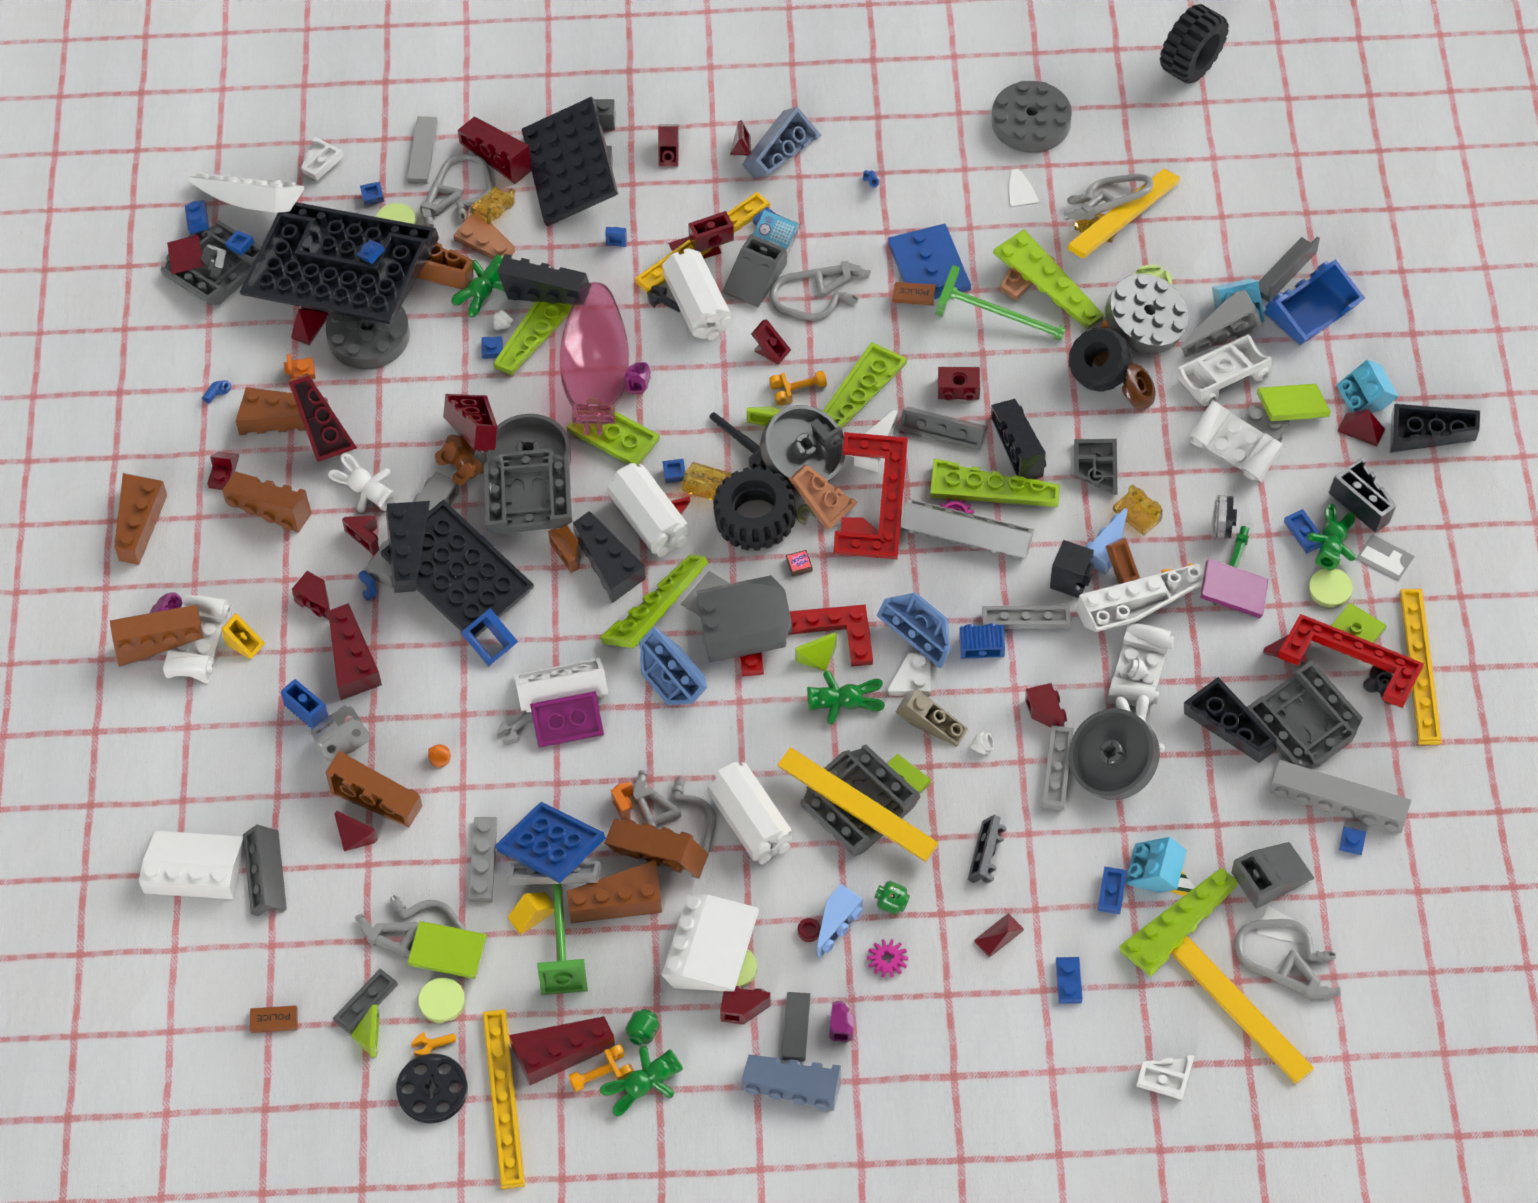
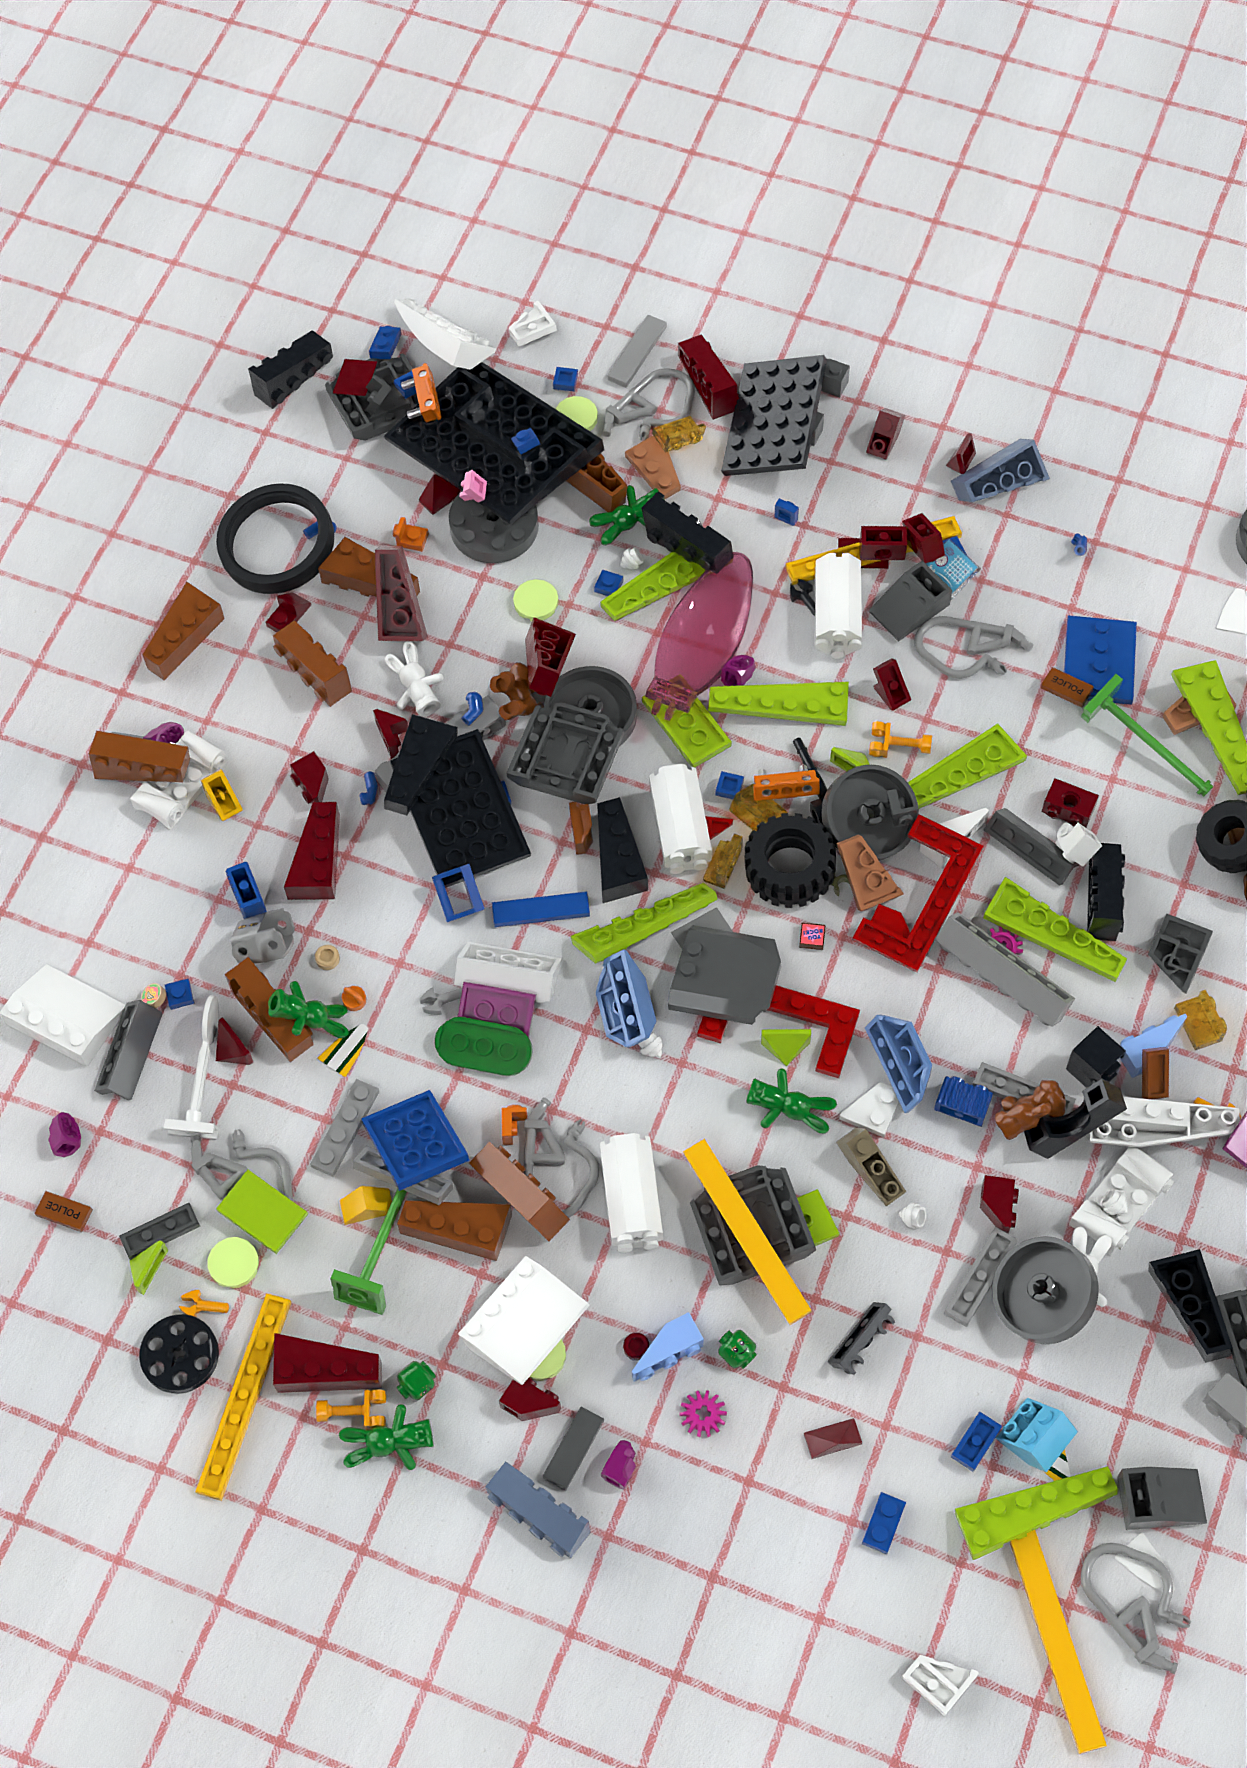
camera: 25 degrees right, 5 degrees up
(122, 267) = (290, 368): none -> black wedge
(163, 375) = (256, 500): none -> black tyre
(244, 958) = (64, 1135): none -> magenta rock
(262, 243) = (426, 394): none -> orange piece
(264, 817) = (153, 995): none -> tile
(285, 810) = (179, 994): none -> blue plate
(344, 304) = (473, 487): none -> bright pink tile
(351, 905) = (192, 1124): none -> white piece
(399, 732) = (327, 957): none -> tan tile
(411, 778) = (311, 1013): none -> green animal
(432, 485) = (475, 707): none -> blue arm
(435, 381) = (535, 599): none -> yellowish green tile
(451, 800) = (345, 1051): none -> sticker
(563, 626) = (540, 909): none -> blue tile
(569, 750) = (483, 1046): none -> green tile
(698, 531) = (724, 861): none -> clear yellow bracket
(699, 384) = (798, 702): none -> lime wing
(709, 697) = (652, 1046): none -> white plate
(722, 451) = (785, 784): none -> orange piece
(744, 215) = (924, 538): none -> dark red brick
(979, 410) = (1077, 843): none -> white brick
(1037, 627) = (1027, 1110): none -> dark orange animal
(1065, 637) = (1053, 1134): none -> black arch

